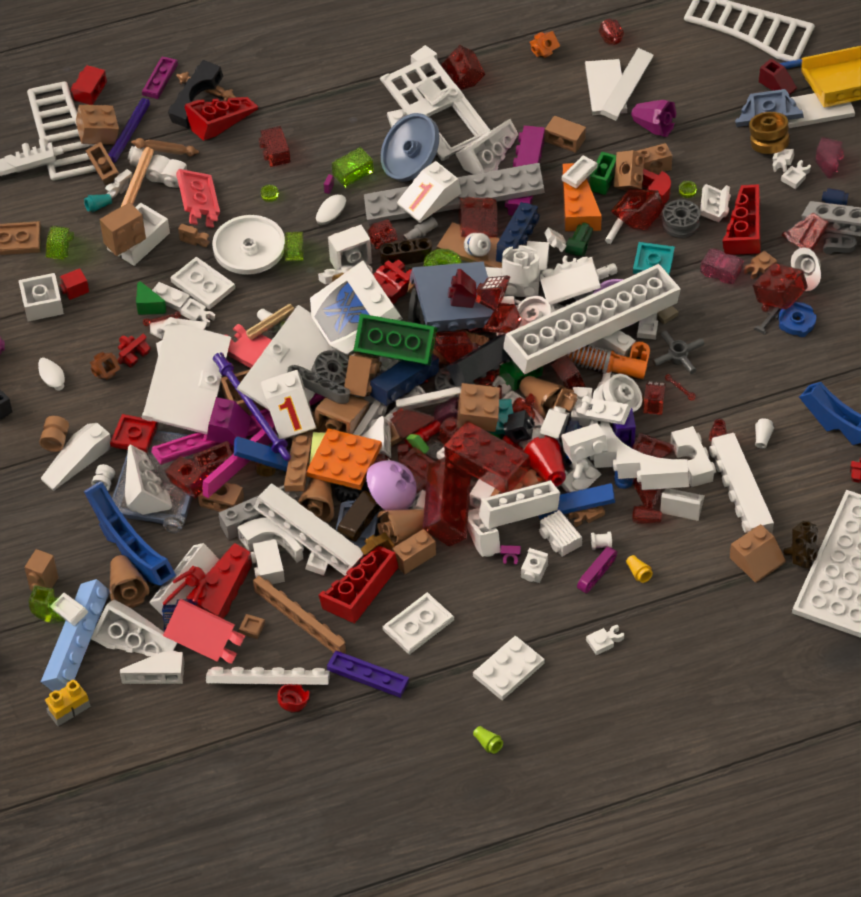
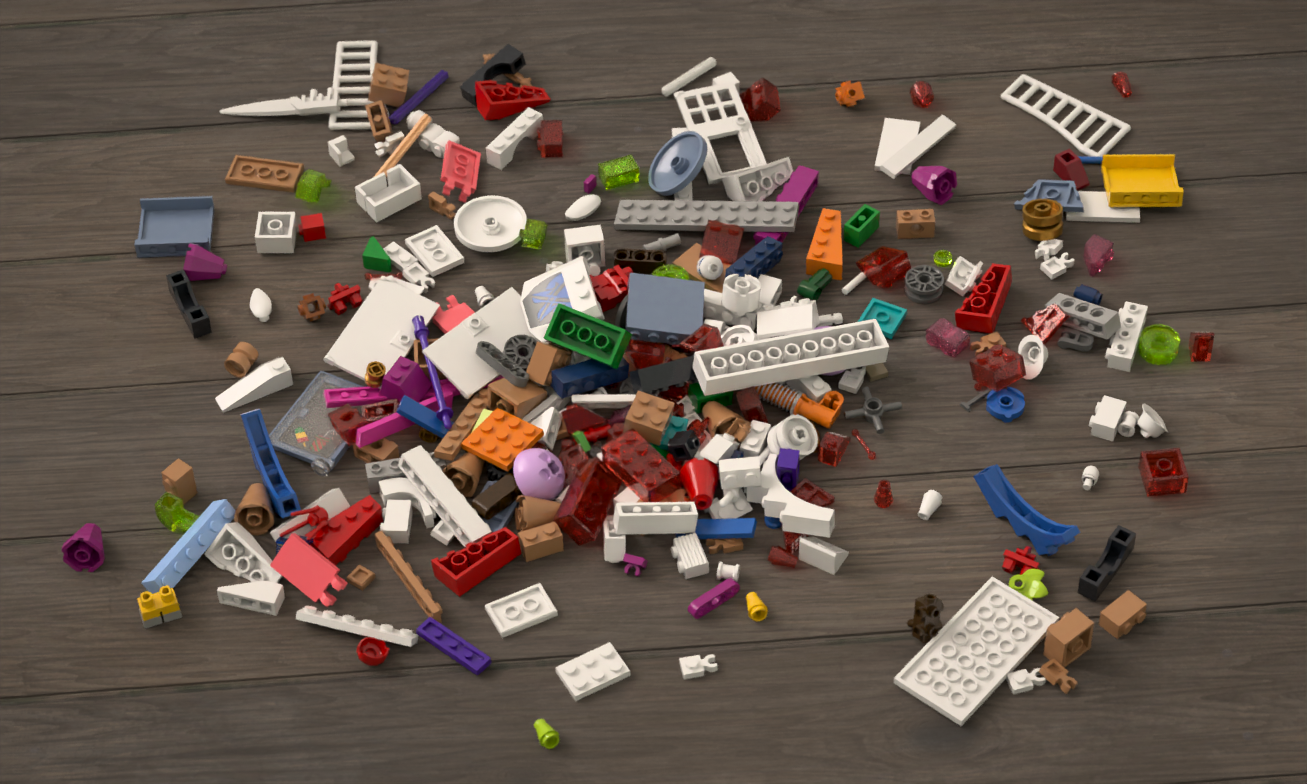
camera: 15 degrees right, 5 degrees down
(69, 609) = (190, 521): white tile -> none
(70, 201) = (339, 151): none -> white panel
(89, 85) = (396, 48): red brick -> none
(96, 202) = (363, 156): teal cone -> none
(104, 474) = (272, 409): white wheel -> none
(122, 229) = (370, 182): medium nougat brick -> none
(135, 432) = (315, 375): red tile -> none
(143, 486) = (304, 424): white wedge -> none
(159, 77) = (467, 54): magenta tile -> none
(165, 147) = (445, 118): medium nougat wheel -> none
(197, 421) = (374, 374): none -> pearl gold wheel
(232, 165) = (501, 149): none -> white arch
(269, 193) = (530, 181): clear neon green tile -> none
(270, 321) = (480, 299): tan axle -> none
(288, 404) = (466, 376): white slope -> none
(373, 542) = (509, 522): pearl gold bracket -> none
(382, 233) = (622, 237): clear red brick -> none
(384, 56) = (688, 76): none -> white axle
(430, 192) = (680, 208): white slope -> none
(432, 91) = (719, 115): white bracket -> none
(462, 290) = (669, 303): dark red slope -> none
(492, 291) = (700, 311): clear red slope -> none
(534, 565) = (653, 581): white brick -> none
(555, 239) = (790, 278): white plate -> none
(565, 134) = (838, 182): medium nougat brick -> none
(579, 171) = (834, 218): white tile -> none
(603, 410) = (770, 446): white plate -> none
(629, 170) = (886, 227): medium nougat brick -> none
(657, 182) = (914, 246): red brick -> none
(688, 443) = (849, 499): white arch -> none
(740, 483) = (888, 550): white brick -> none
(757, 553) = (879, 617): medium nougat slope -> none

